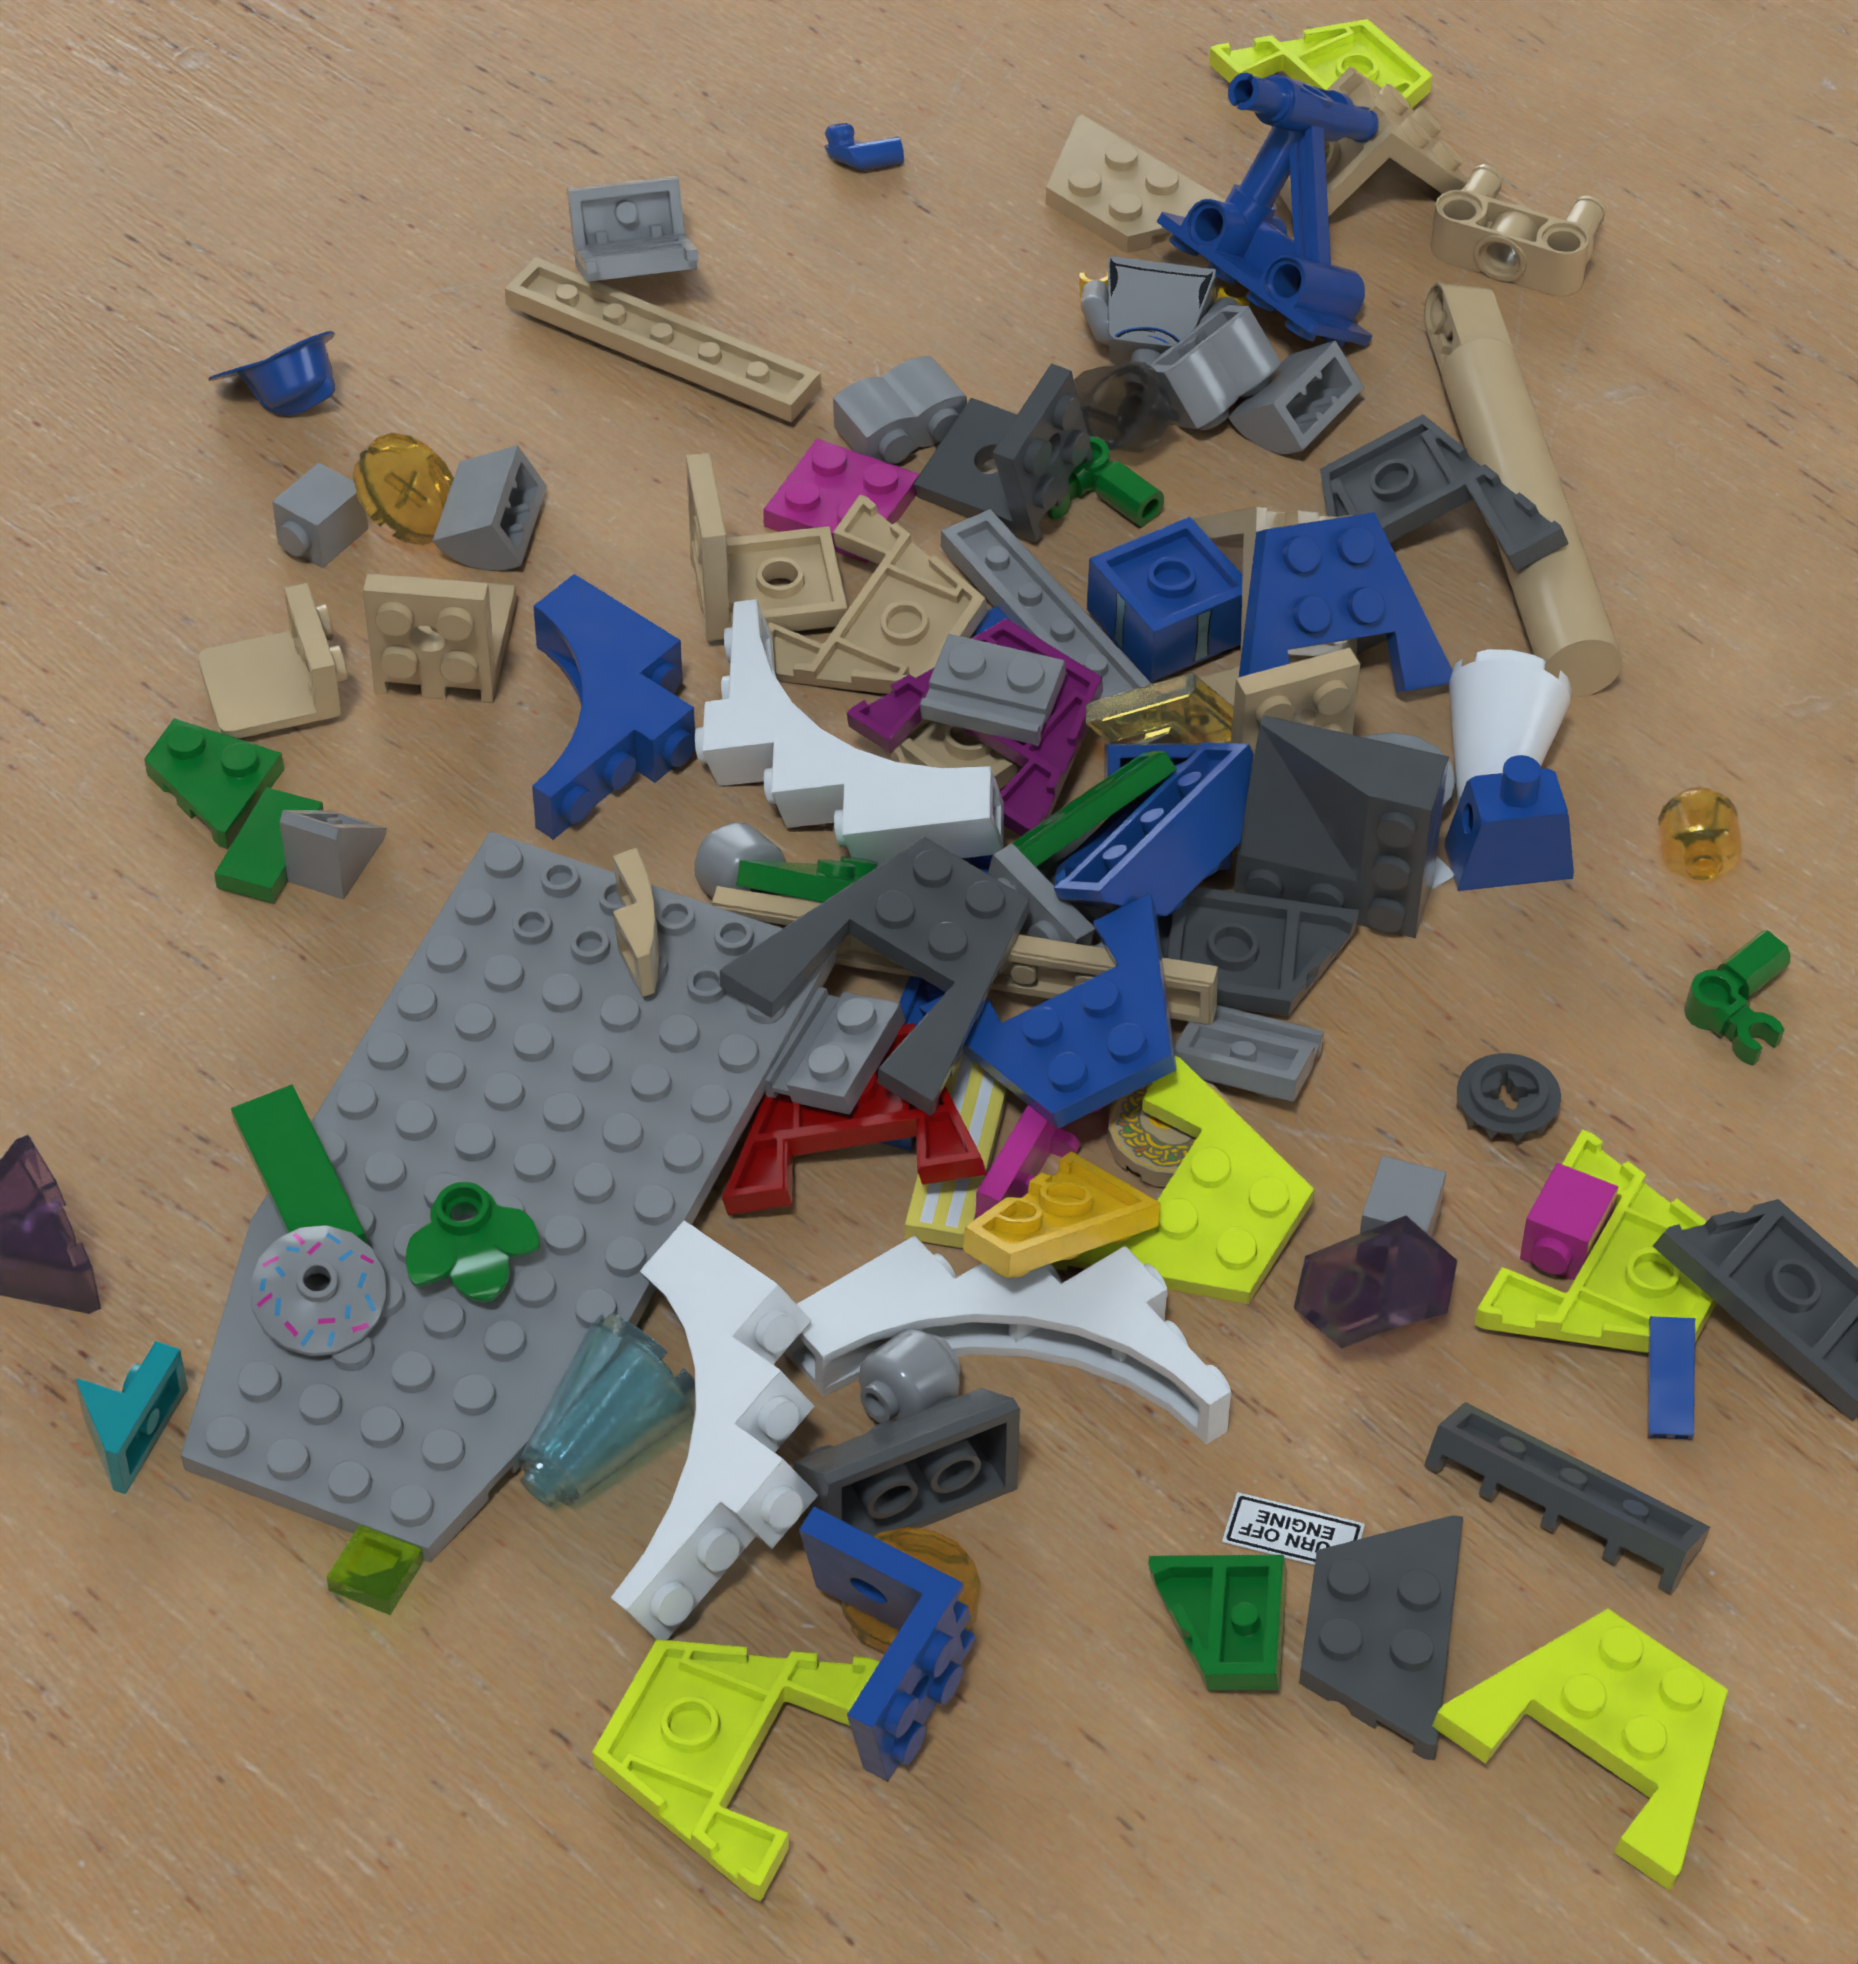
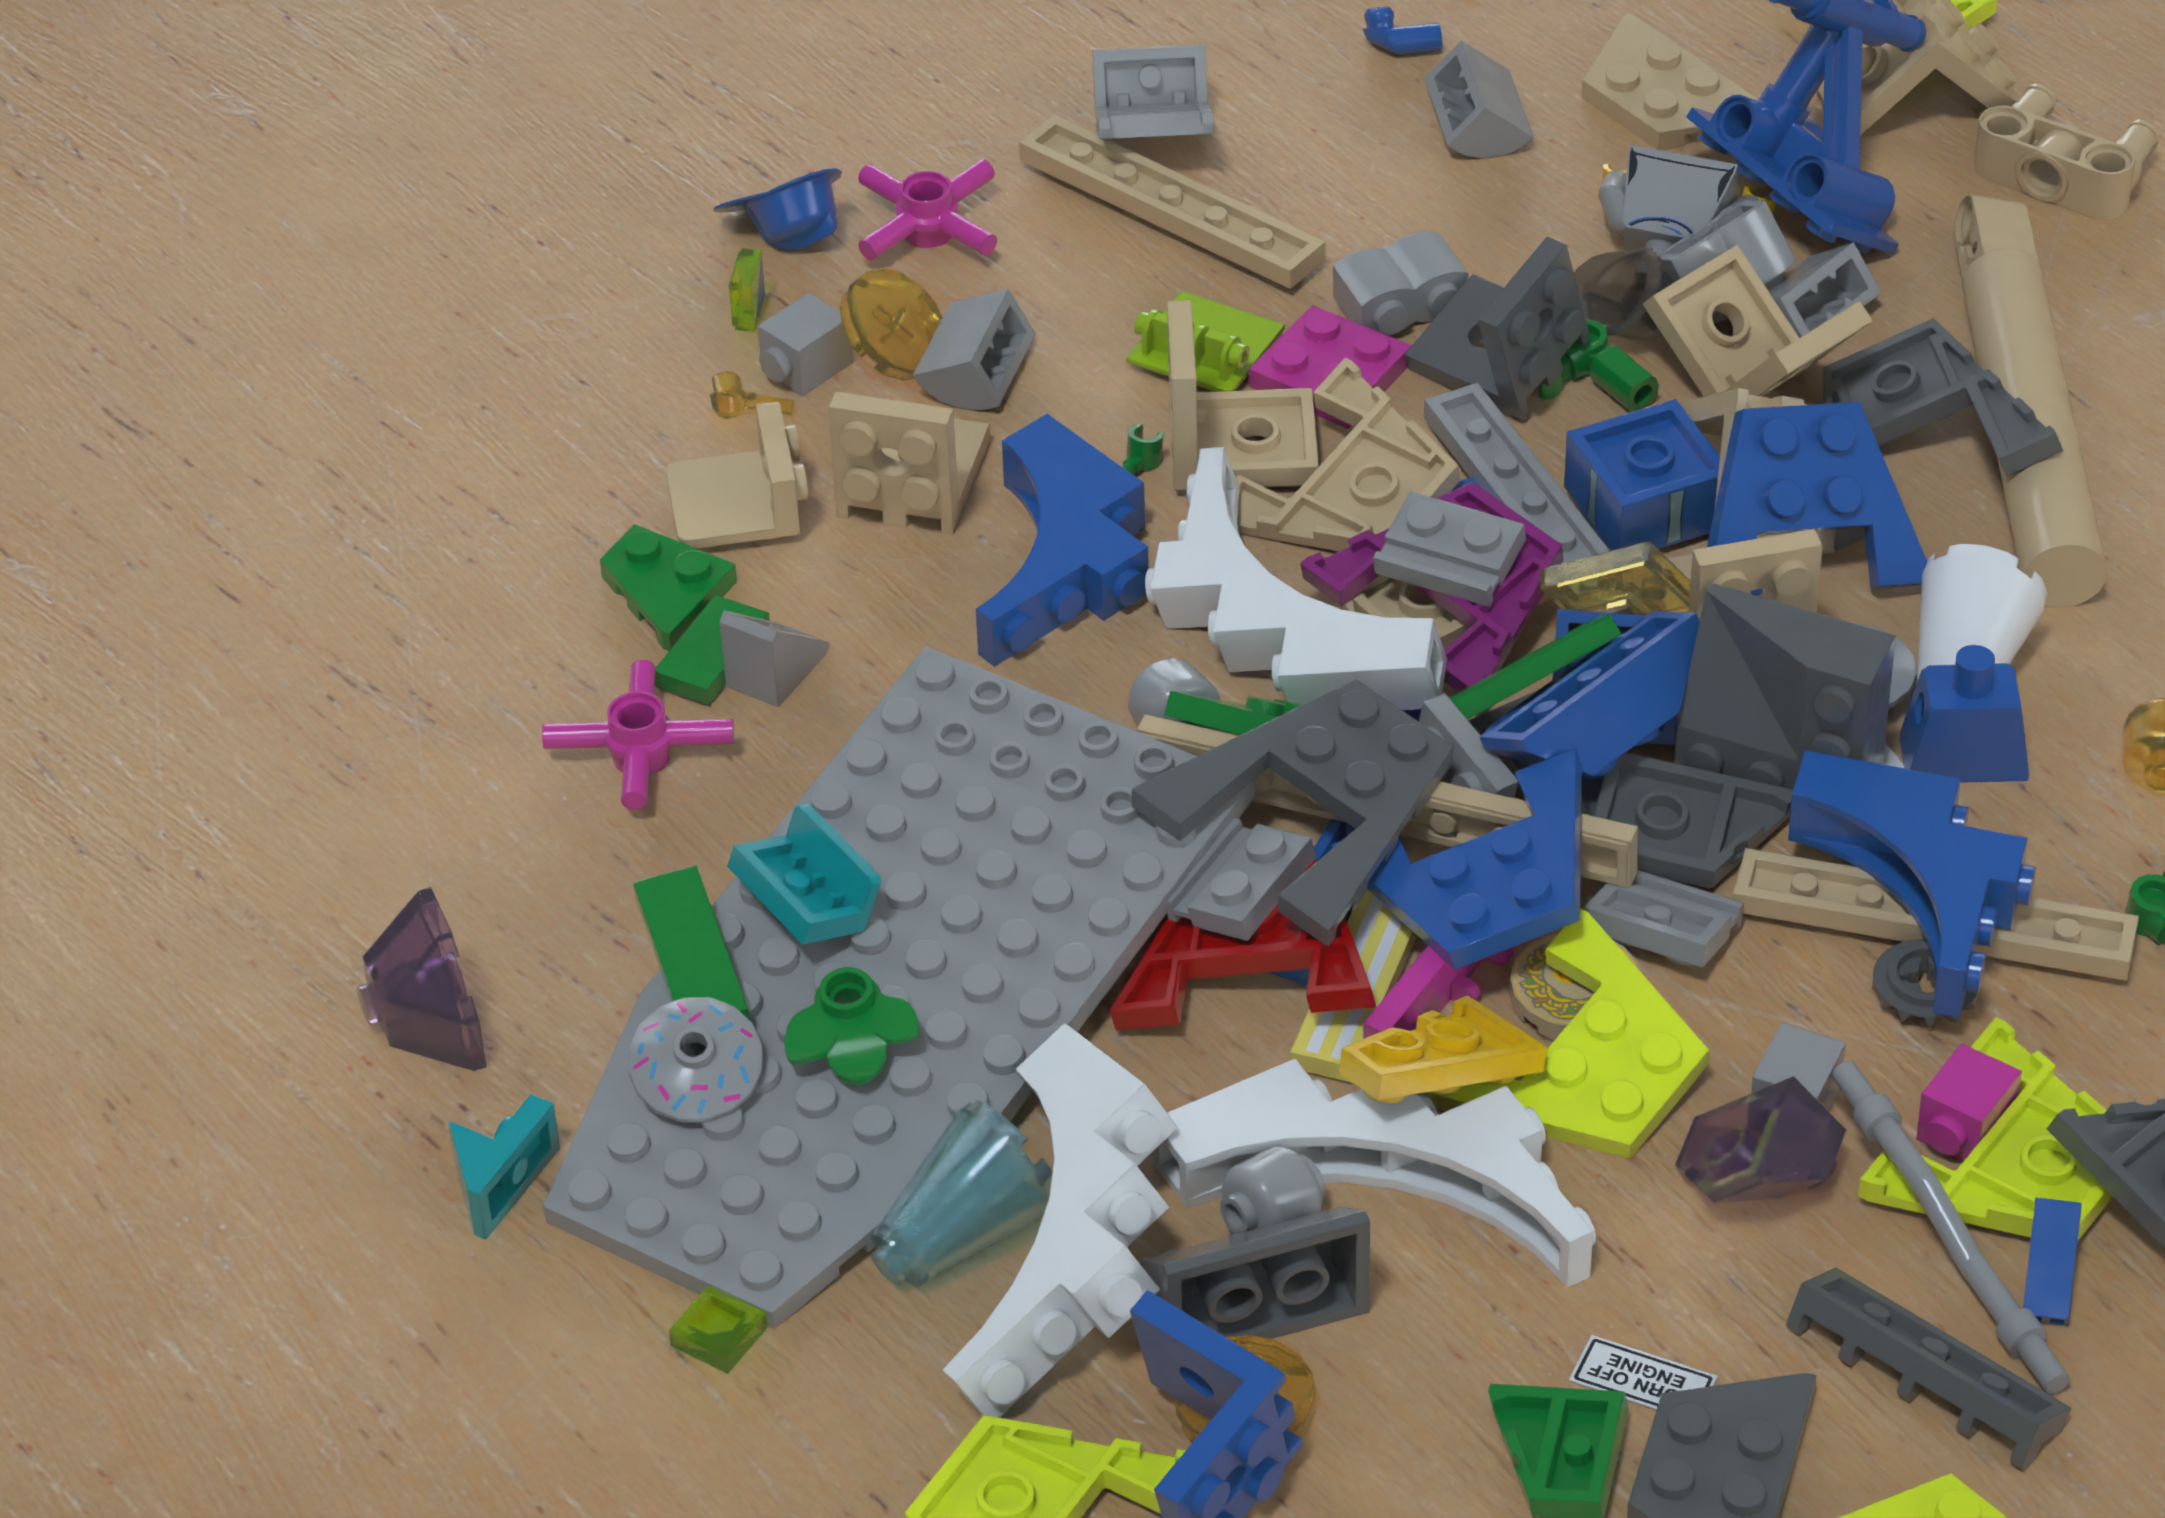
camera: 10 degrees right, 5 degrees down
(209, 942) = (638, 734): none -> dark pink bar
(252, 578) = (731, 400): none -> clear yellow hand
(254, 461) = (747, 289): none -> clear neon green tile
(409, 1090) = (809, 878): none -> teal bracket
(422, 364) = (927, 209): none -> dark pink bar
(636, 921) = (1056, 737): tan slope -> none
(669, 605) = (1142, 453): none -> green hand
(742, 477) = (1224, 342): none -> lime hinge
(948, 219) = (1477, 104): none -> light grey brick
(1261, 455) = (1763, 343): none -> tan bracket
(1481, 957) = (1917, 845): none -> blue arch
(1508, 1023) = (1854, 902): none -> tan plate
(1646, 1447) = (2016, 1326): none -> light grey bar

